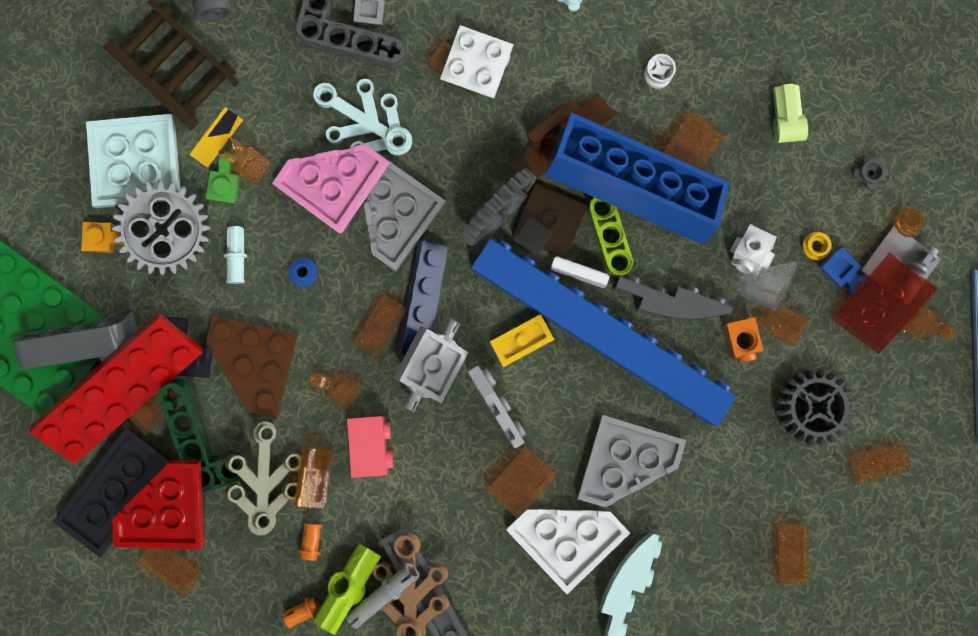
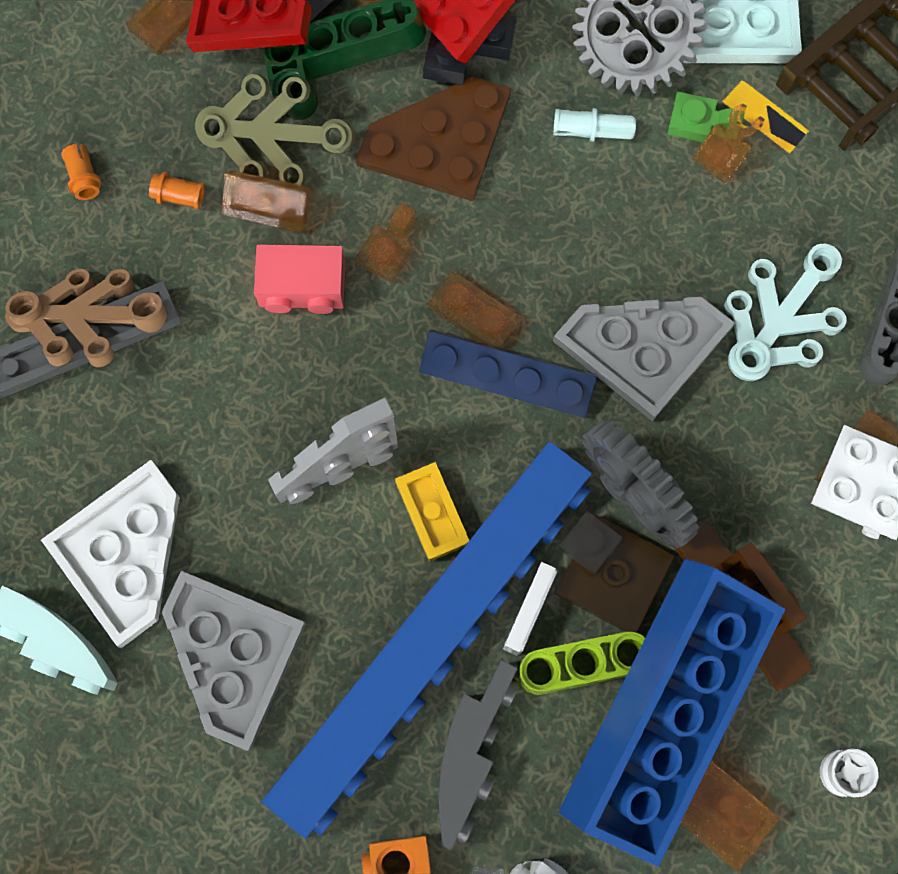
camera: 100 degrees right, 10 degrees down
(309, 279) = (558, 222): blue plate -> none
(332, 182) = (691, 258): bright pink plate -> none
(351, 578) = (101, 229): lime piece -> none
(390, 589) = (87, 282): light grey pin -> none
(431, 364) = (409, 371): light grey plate -> none
(521, 482) = (219, 491): clear orange plate -> none

